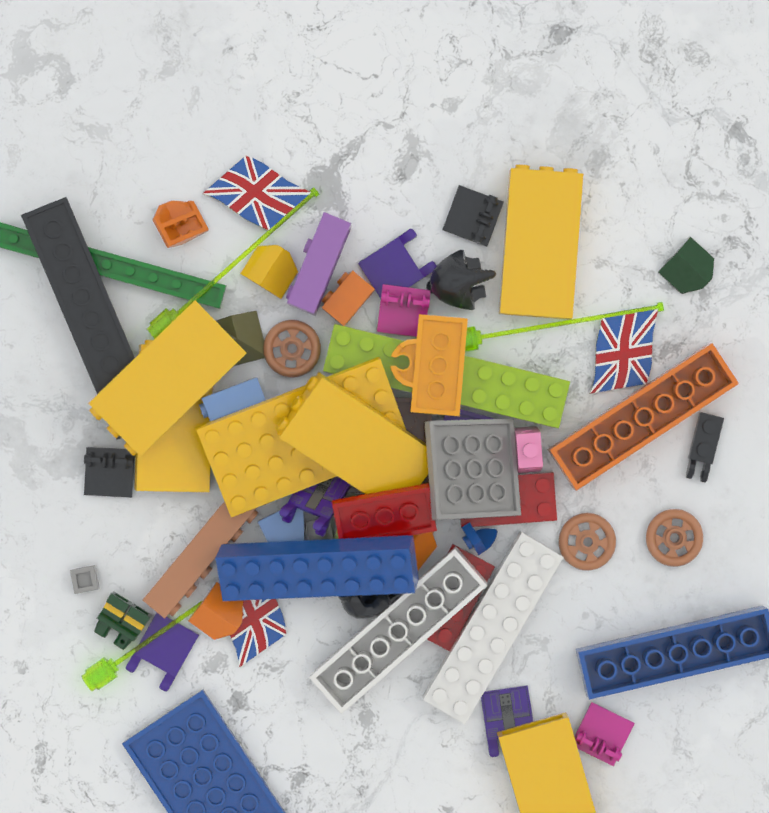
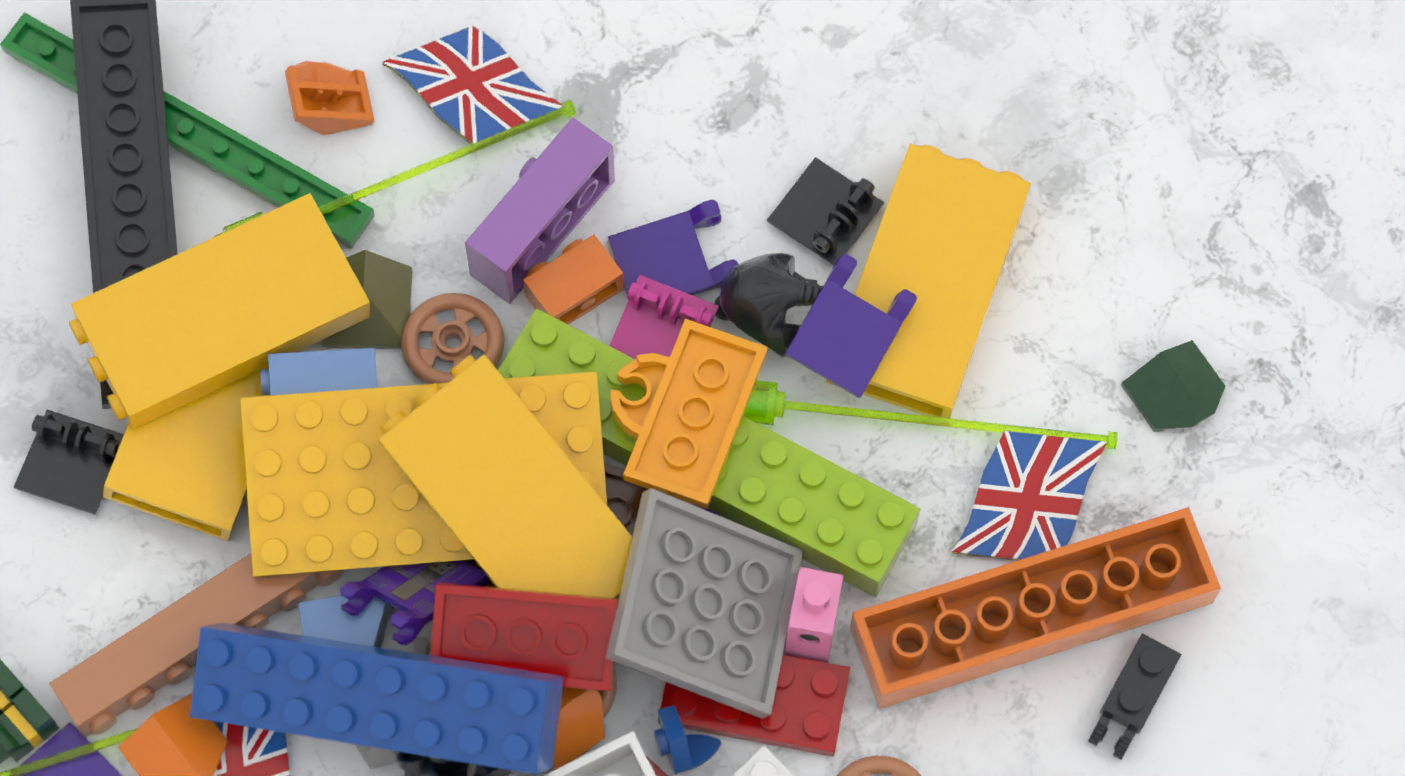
camera: 20 degrees right, 20 degrees down
(271, 269) = (454, 206): yellow slope -> none
(505, 294) = (846, 335): none -> dark purple flag

